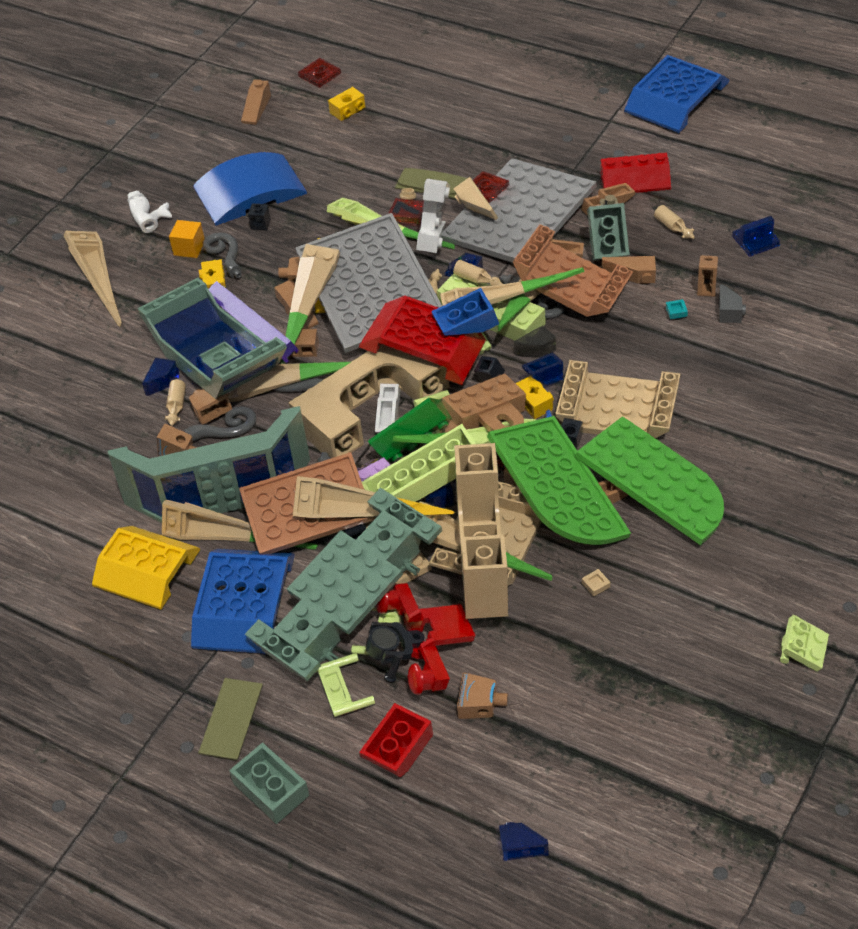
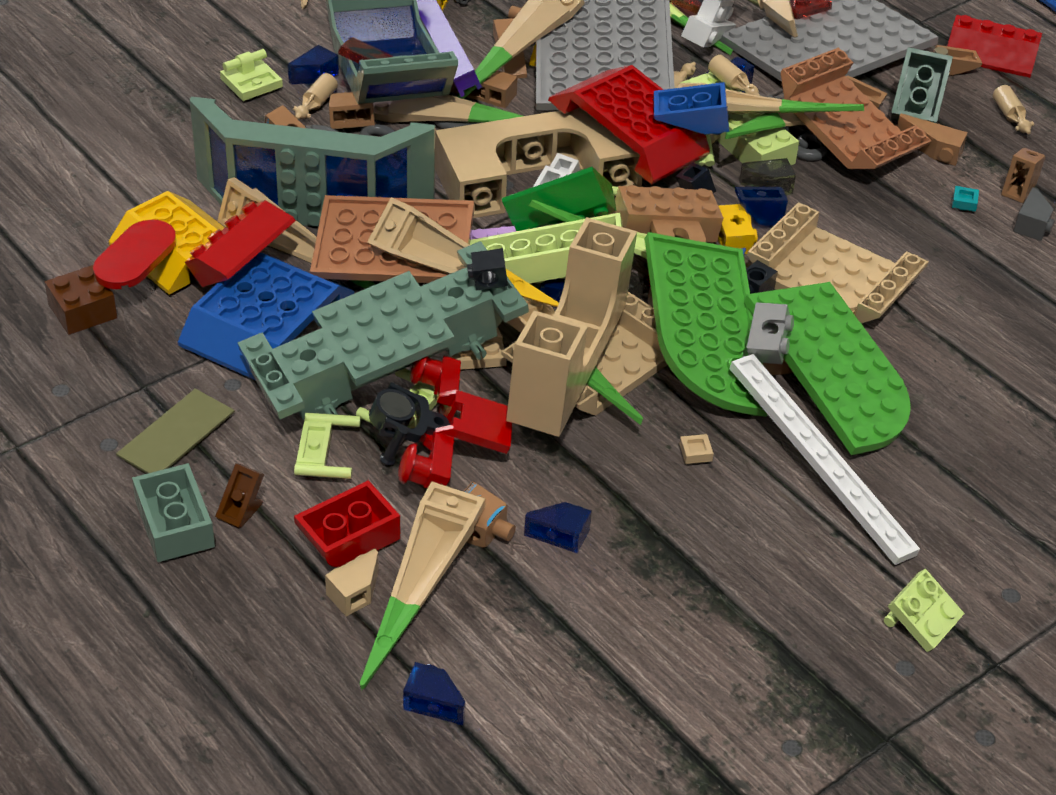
camera: 15 degrees right, 5 degrees down
(101, 641) = (80, 300): none -> reddish brown brick
(117, 402) = (250, 75): none -> yellowish green plate
(126, 591) = (134, 254): none -> red tile
(198, 552) = (237, 242): none -> red slope
(201, 356) = (358, 50): none -> clear red tile
(308, 750) = (240, 498): none -> reddish brown slope
(402, 511) = (488, 269): none -> black brick
(422, 784) = (353, 583): none -> tan slope
(463, 724) = (438, 534): none -> tan plate
(536, 680) = (559, 525): none -> clear blue slope
(608, 488) = (766, 320): none -> light grey brick
(685, 556) = (825, 460): none -> white plate

